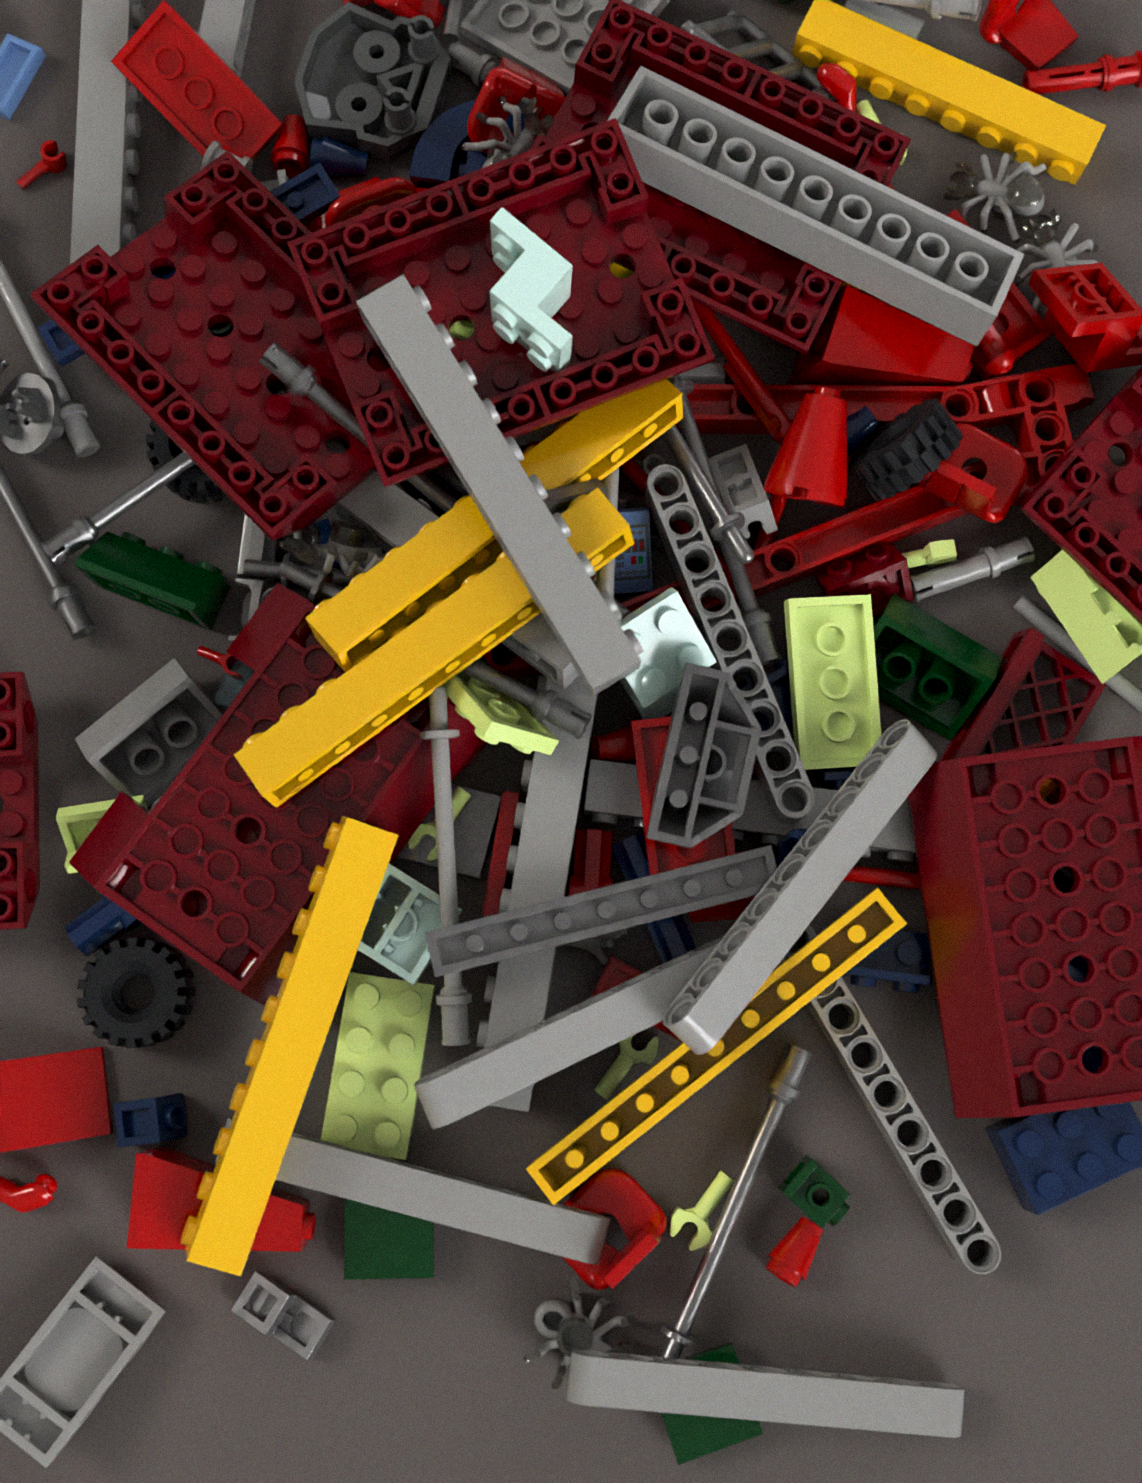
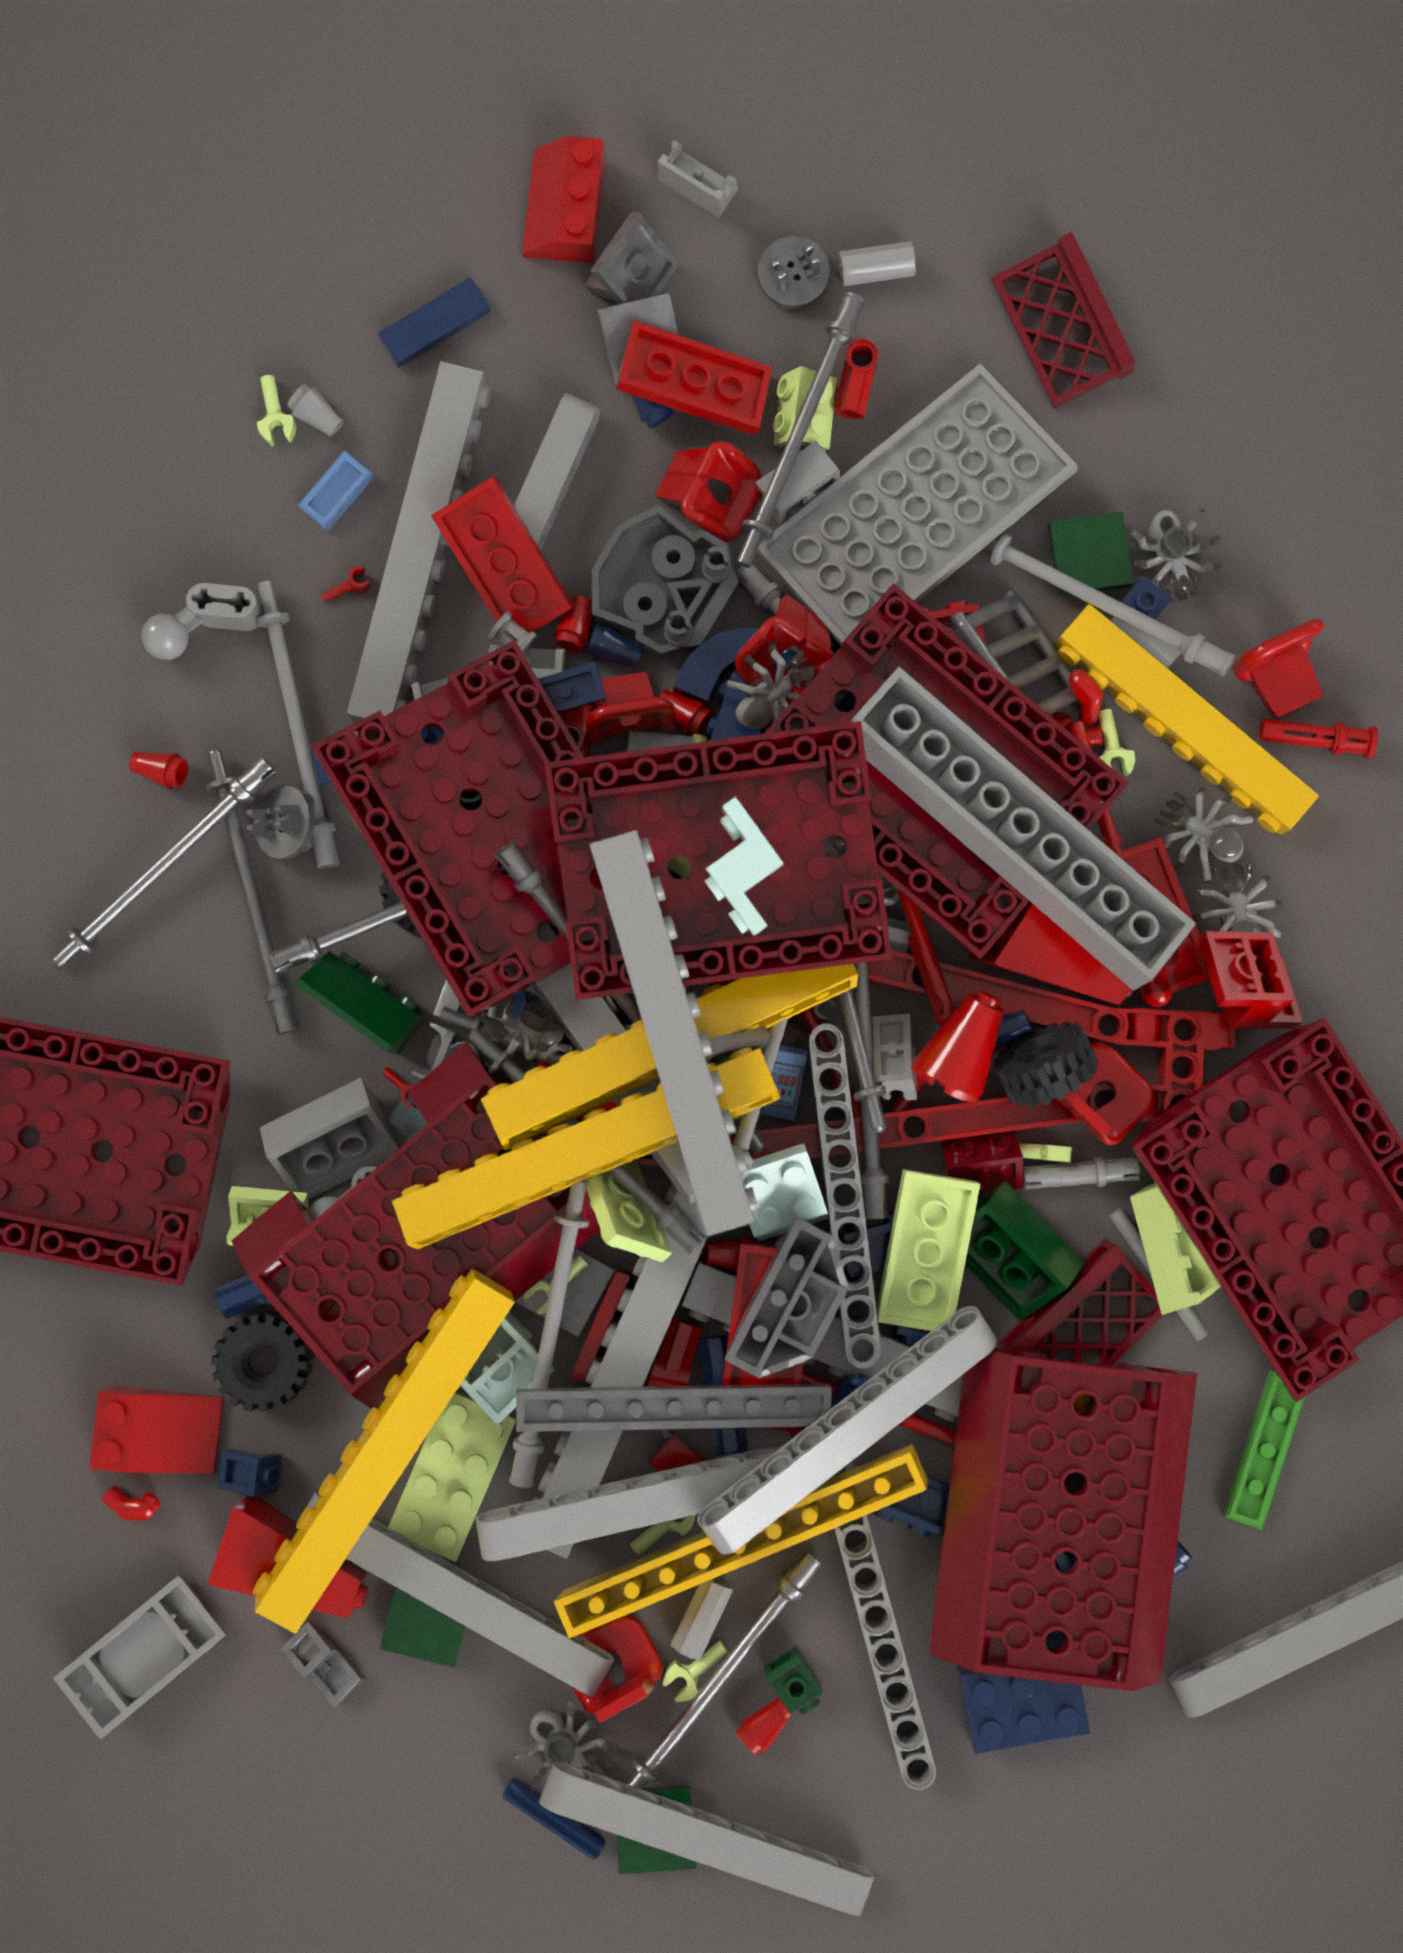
camera: 20 degrees right, 5 degrees up
(588, 1422) = (567, 1829): none -> dark blue axle
(694, 1148) = (701, 1618): none -> light grey axle

